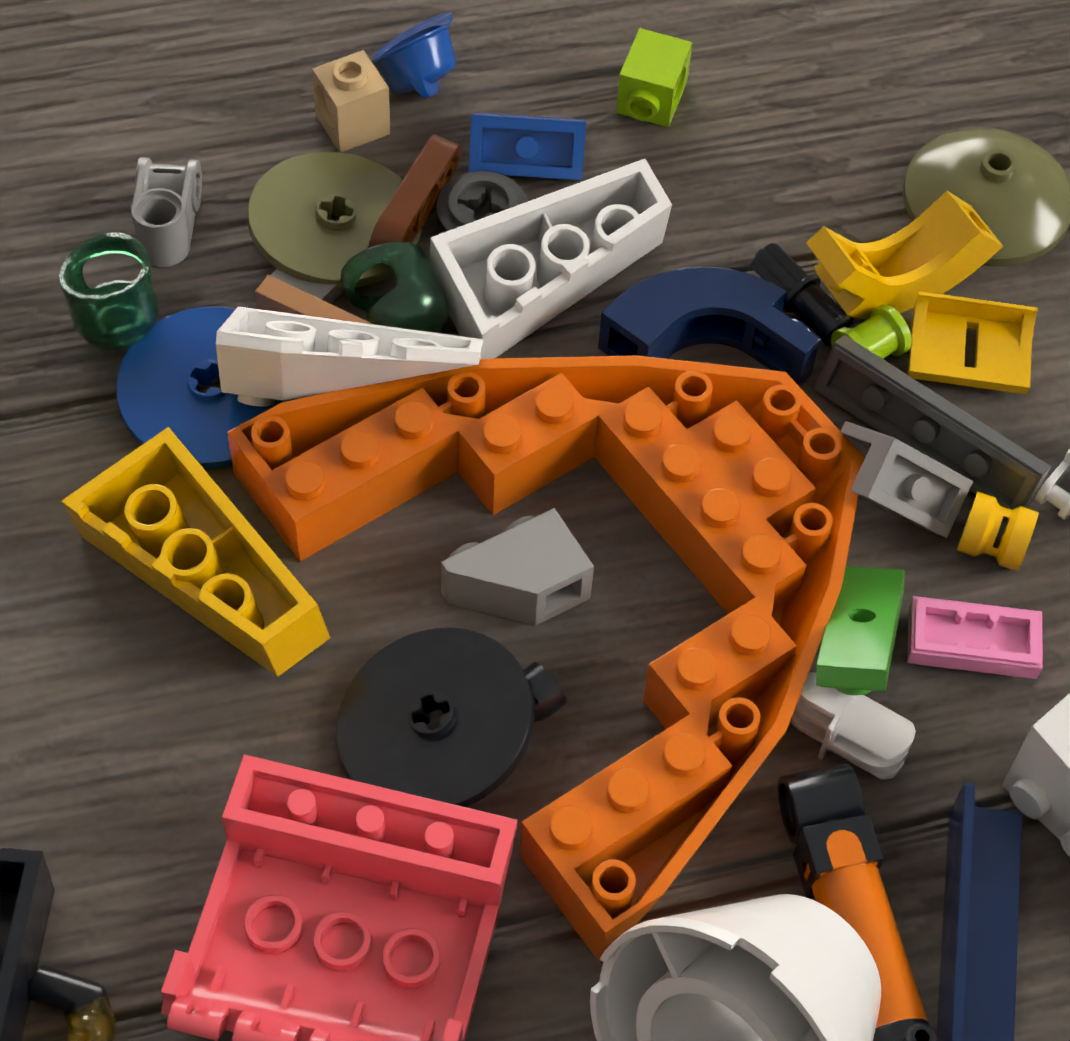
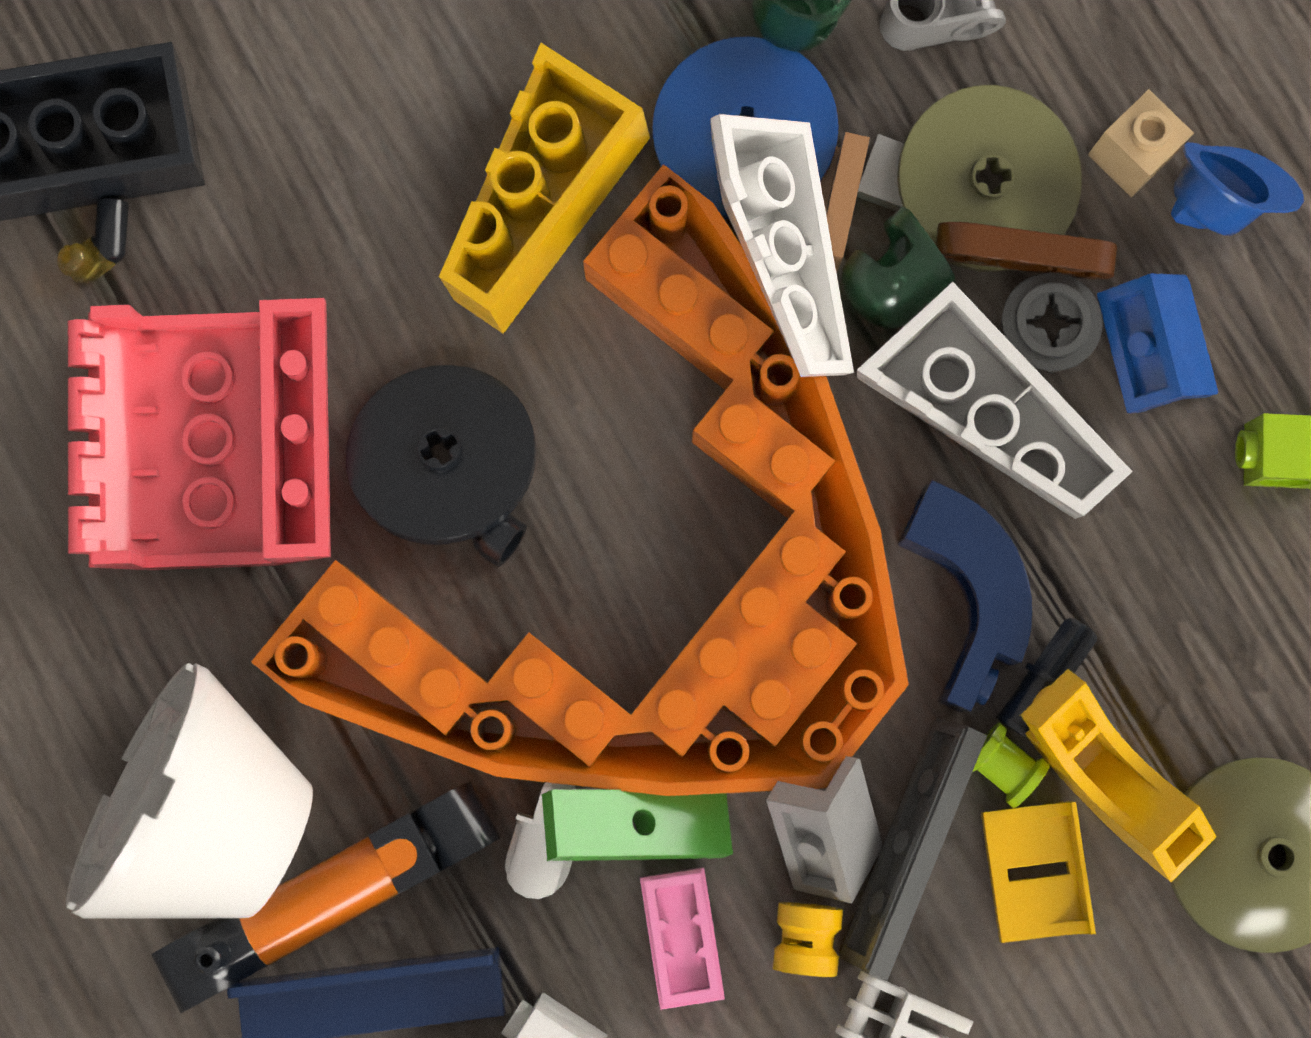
camera: 75 degrees right, 25 degrees up
(521, 573) = (617, 489): light grey slope -> none

